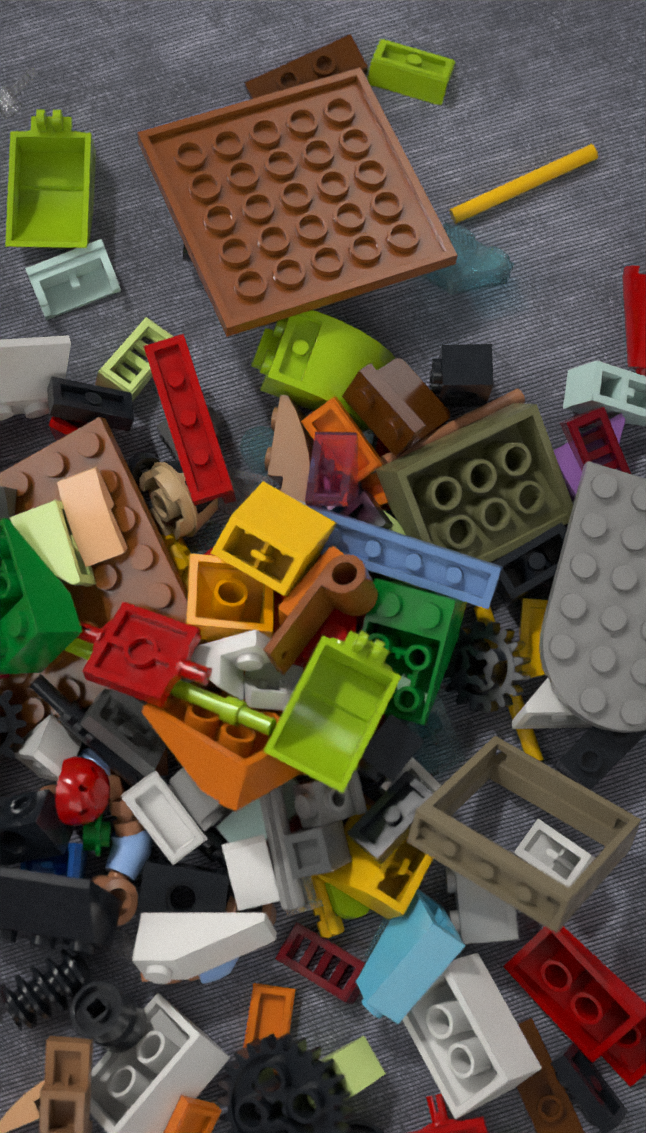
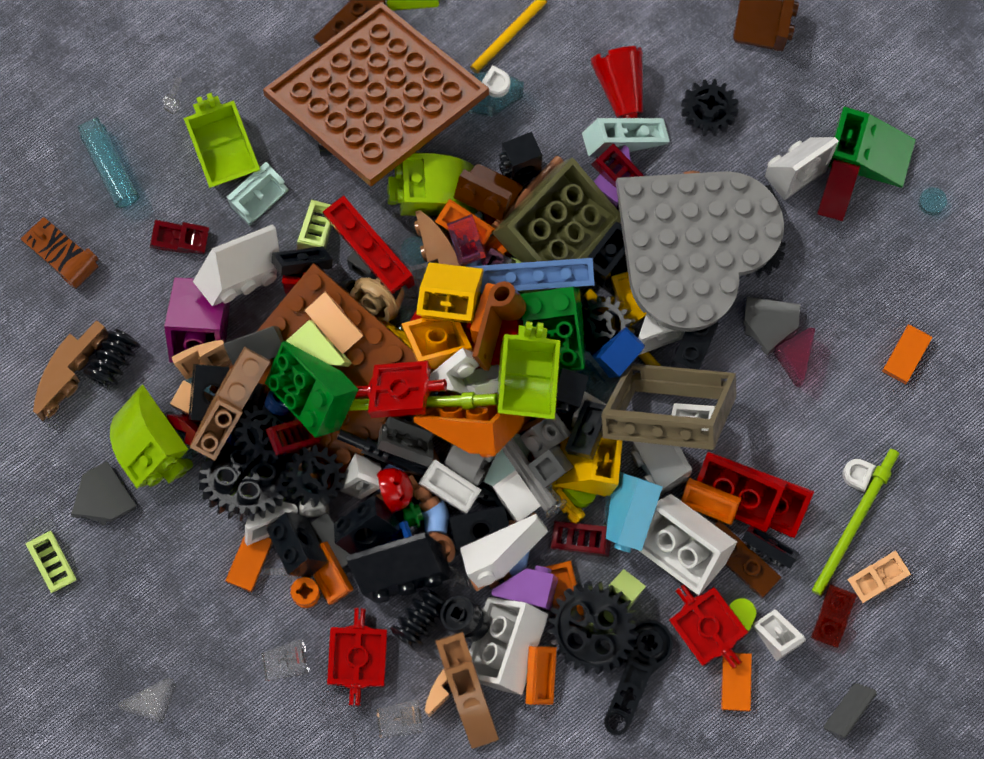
camera: 20 degrees left, 5 degrees down
(218, 1010) = (529, 586): none -> medium lavender slope
(474, 250) = (497, 82): none -> white tile
(485, 718) = (618, 353): none -> blue slope
(530, 986) = (711, 501): none -> orange tile

